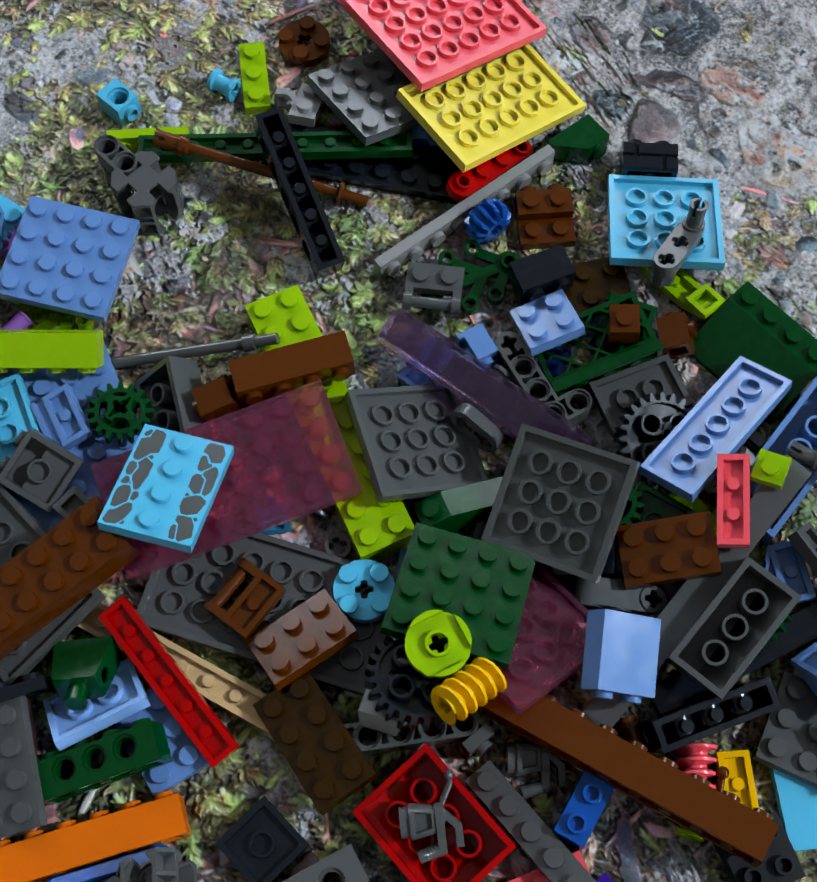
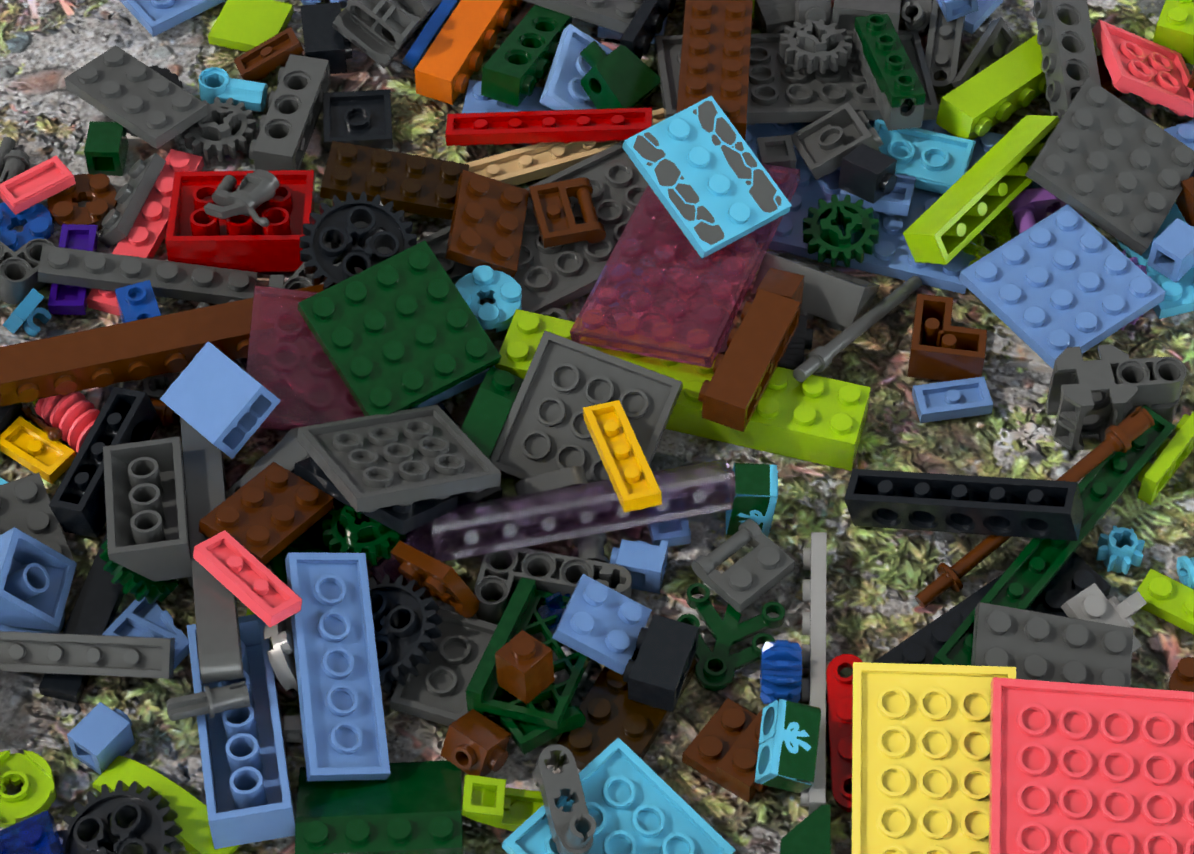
camera: 130 degrees right, 15 degrees down
(62, 417) = (867, 173): none -> black brick
(170, 304) = (941, 349): none -> reddish brown brick
(203, 275) = (952, 399): none -> medium blue plate
(242, 122) = (1120, 550): none -> medium azure gear
(380, 303) = (755, 496): none -> dark green piece
(439, 375) = (622, 456): none -> yellow plate
(456, 650) = (368, 269): lime plate -> none
(467, 690) = (302, 251): yellow piece -> none
(533, 163) = (788, 745): none -> piece
(607, 423) = (437, 578): none -> reddish brown plate
(770, 469) = (239, 629): lime plate -> none

